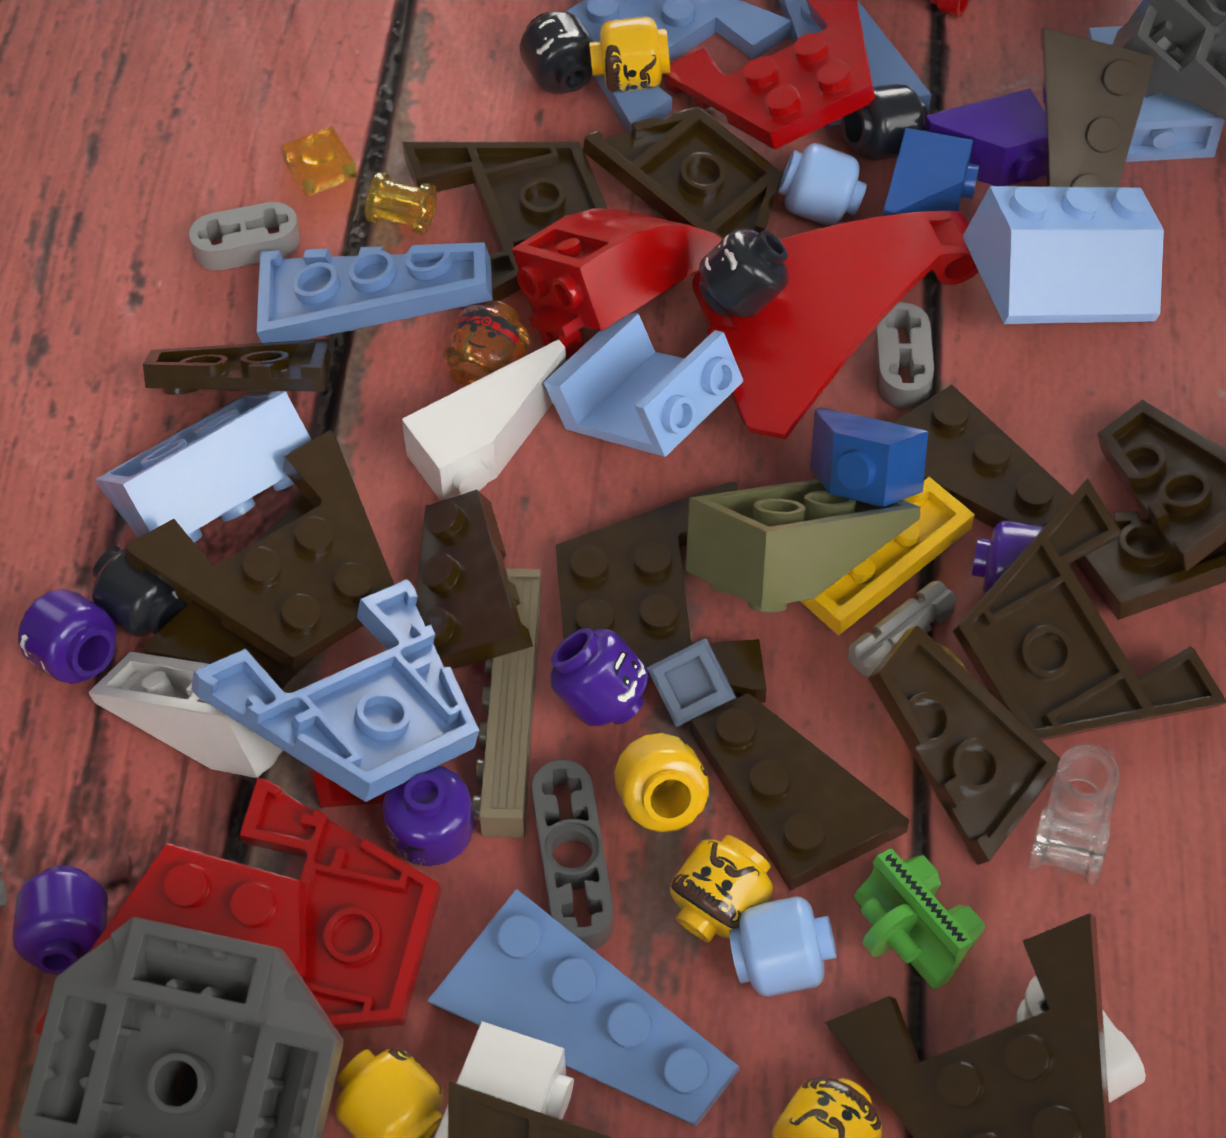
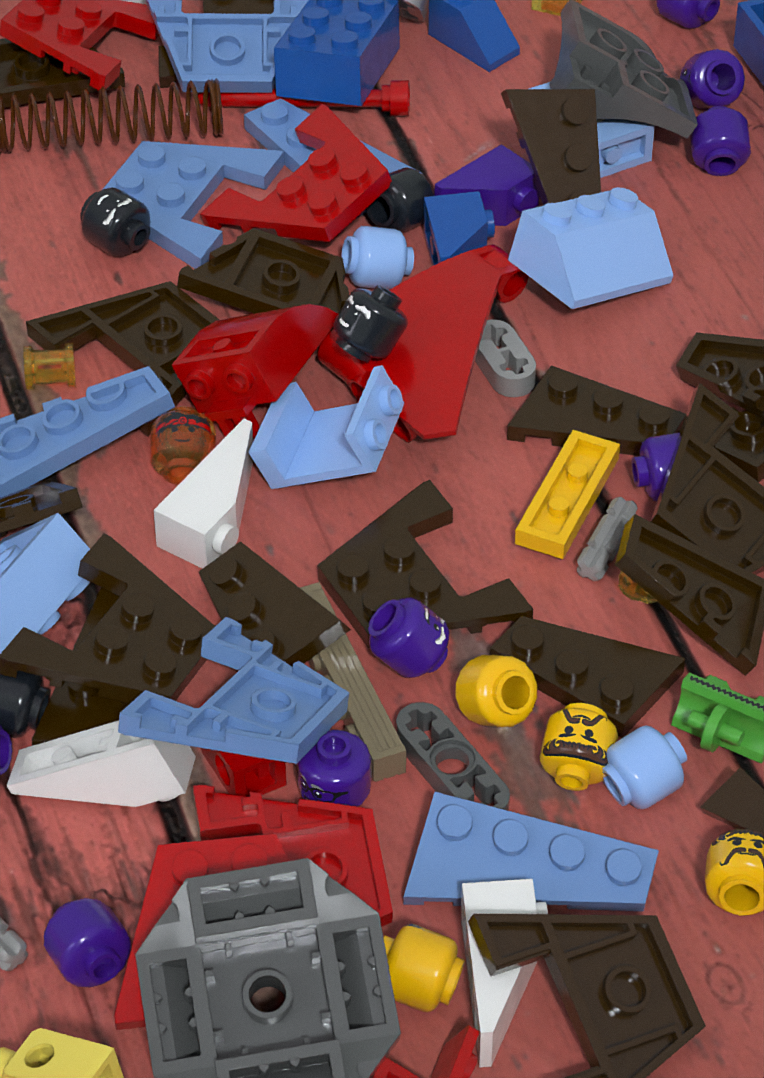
camera: 25 degrees left, 10 degrees down
(631, 54) = (179, 205): yellow head -> none
(691, 682) = (478, 621): sand blue tile -> none
(786, 540) = (496, 500): olive slope -> none
(867, 457) = (521, 426): blue slope -> none

